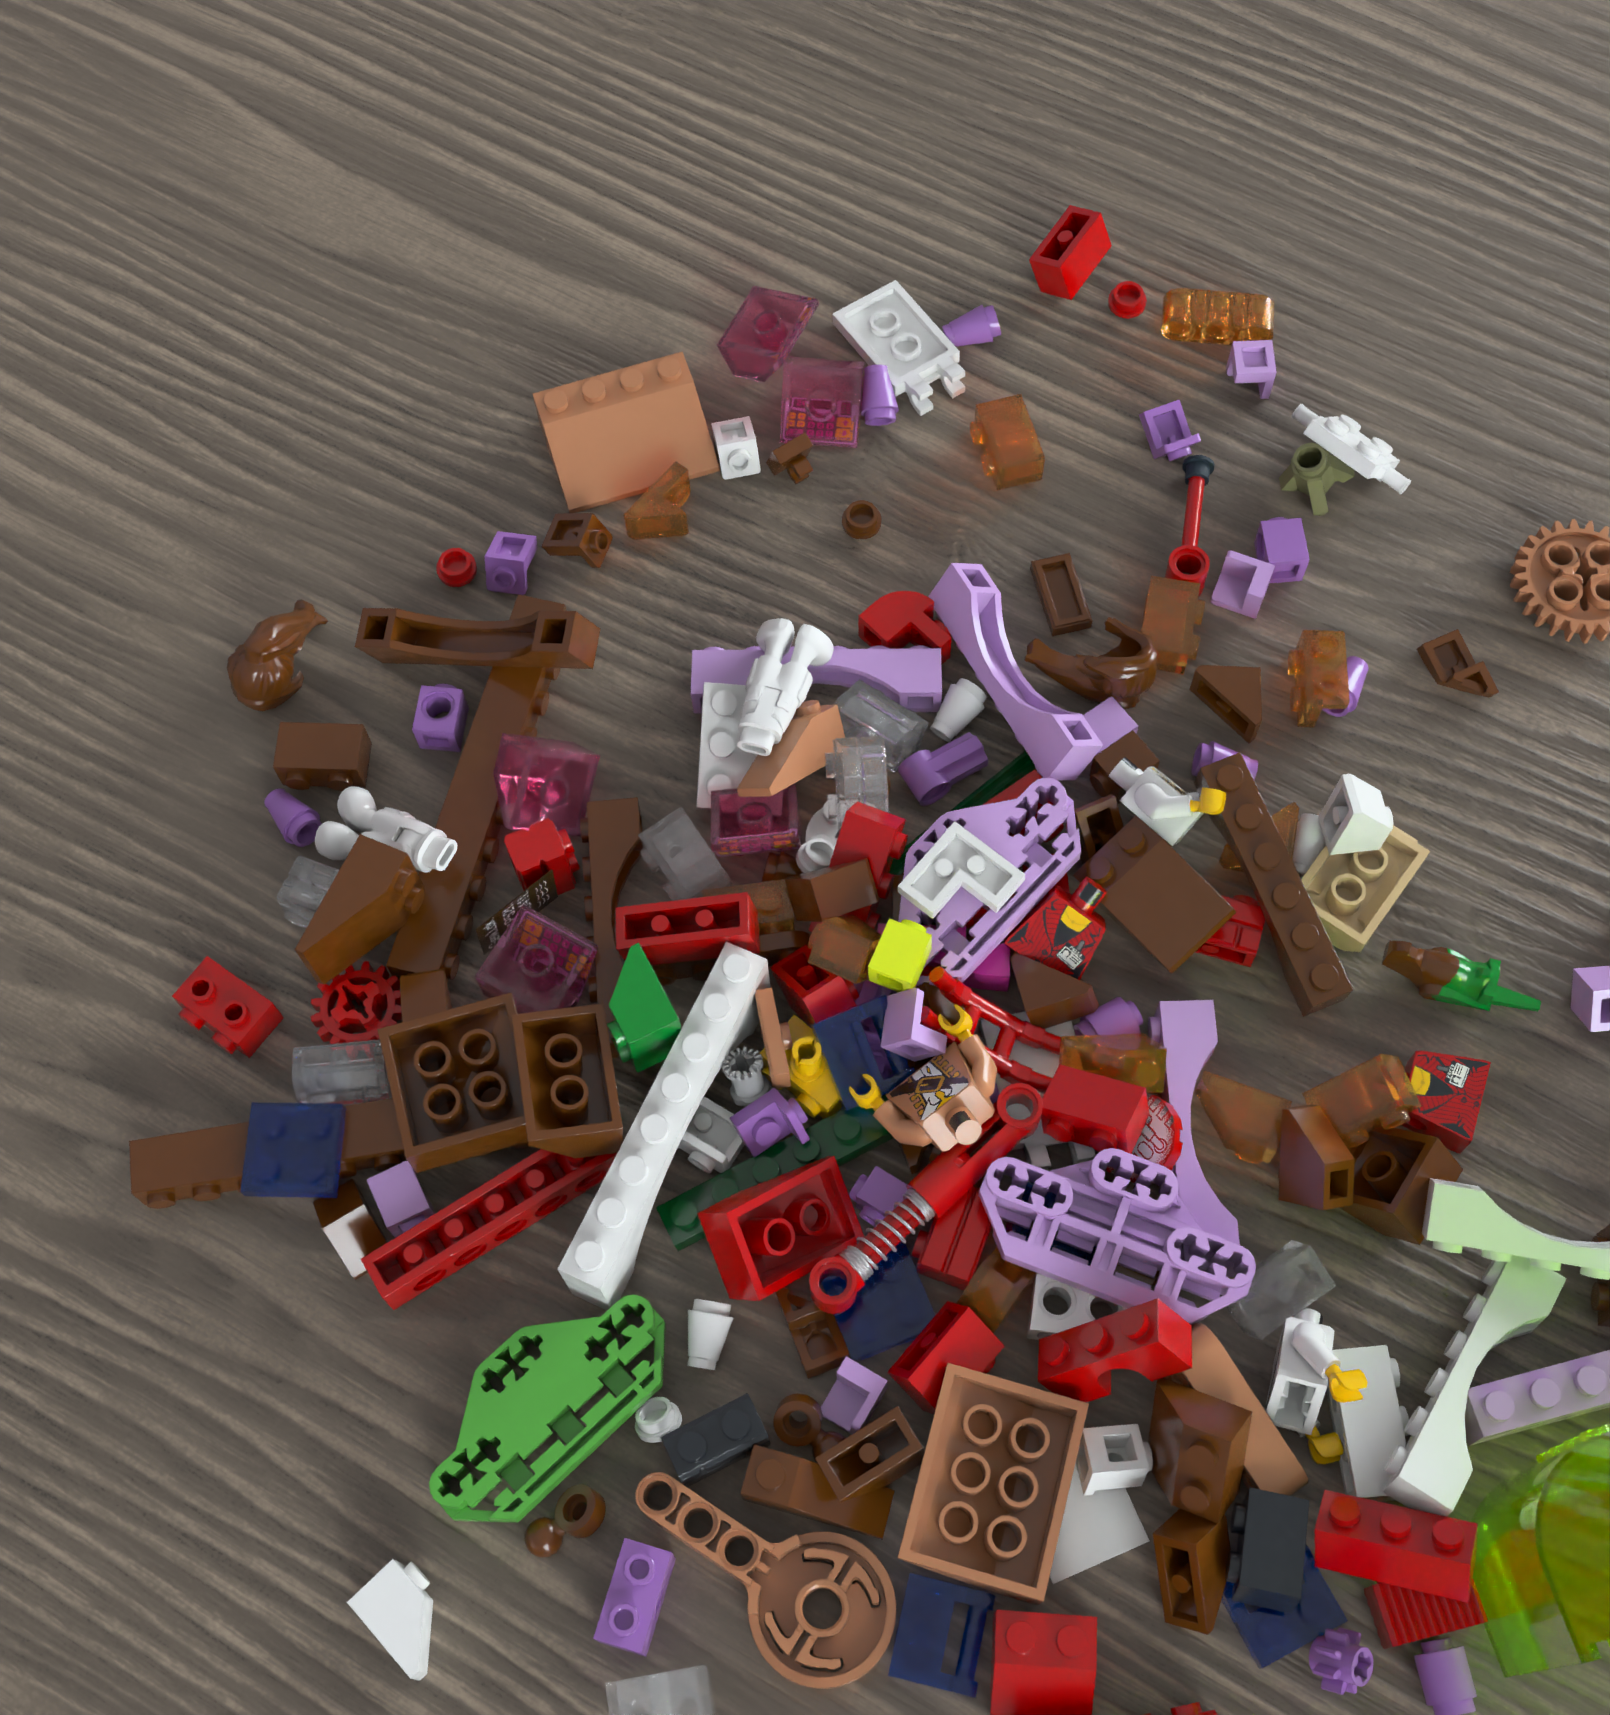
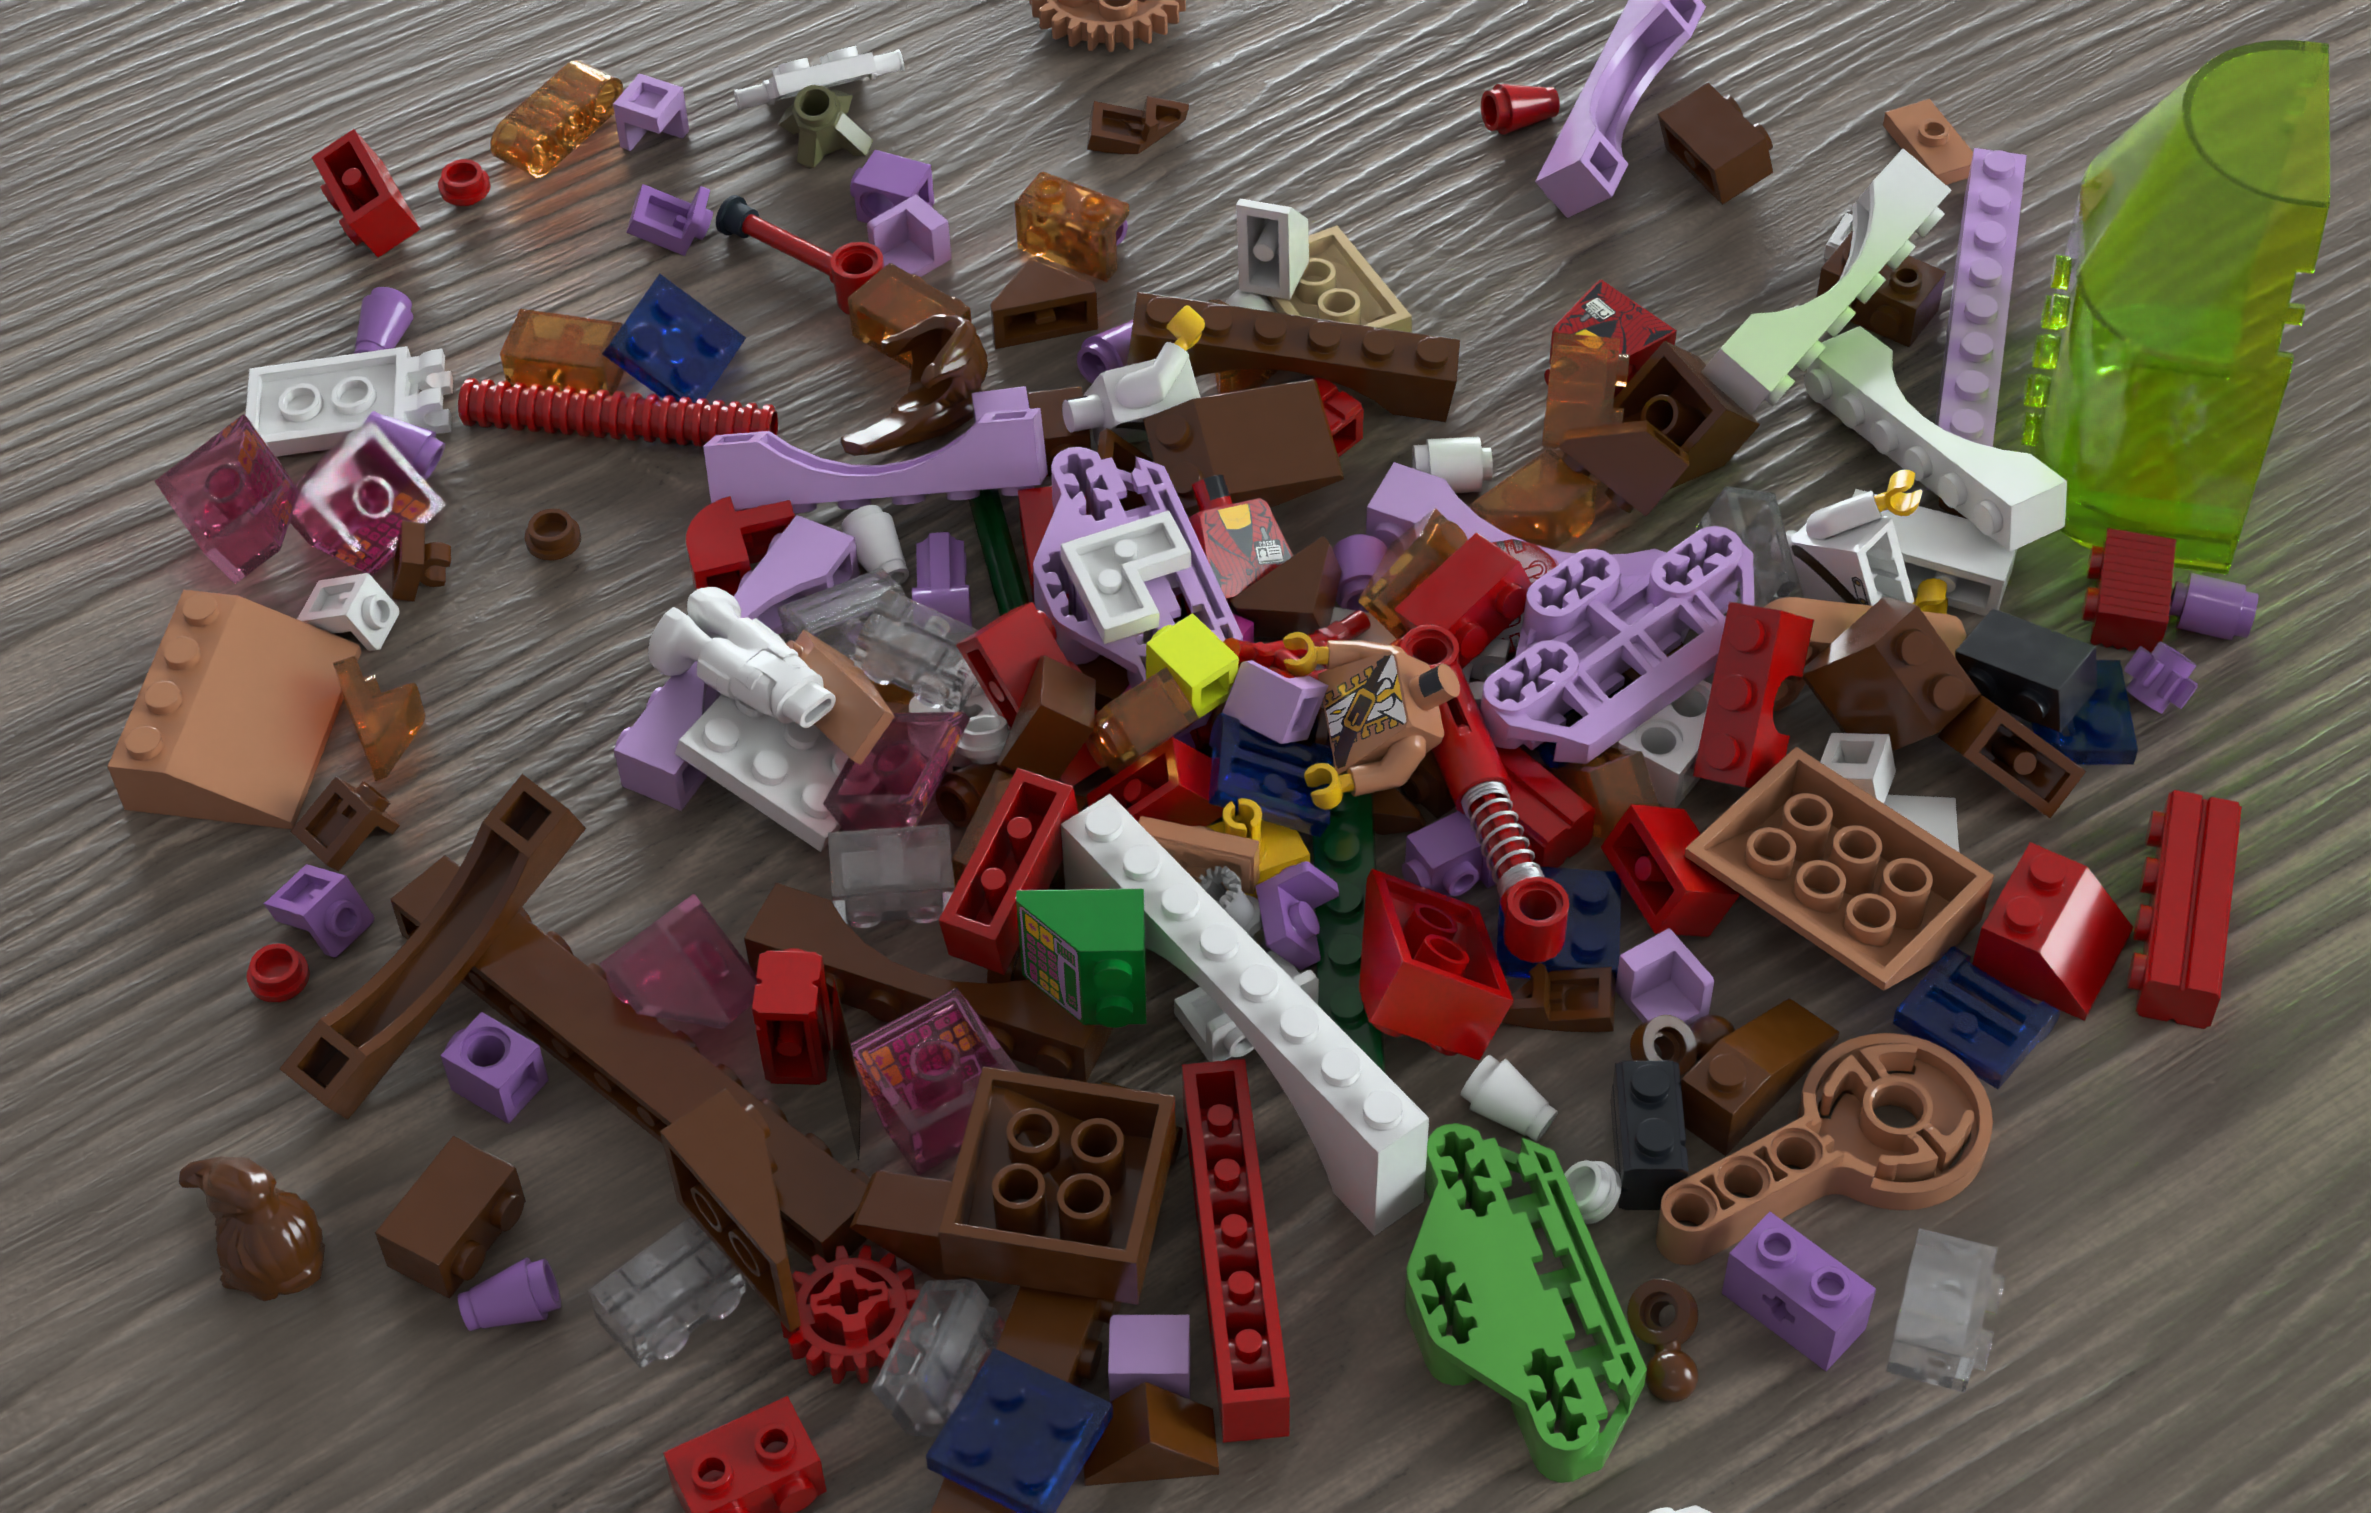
camera: 65 degrees left, 15 degrees down
(423, 843) = (628, 1167): white piece -> none
(568, 1081) = (1143, 1040): reddish brown slope -> none
(872, 1456) = (1748, 971): reddish brown slope -> none
(980, 501) = (608, 414): none -> red piece
(1052, 498) = (674, 343): none -> clear blue plate
(1061, 594) = (800, 400): reddish brown tile -> none
(1249, 1040) = (1457, 461): none -> white brick
(1396, 1545) = (2075, 556): red brick -> none
(1453, 978) = (1484, 278): animal -> none

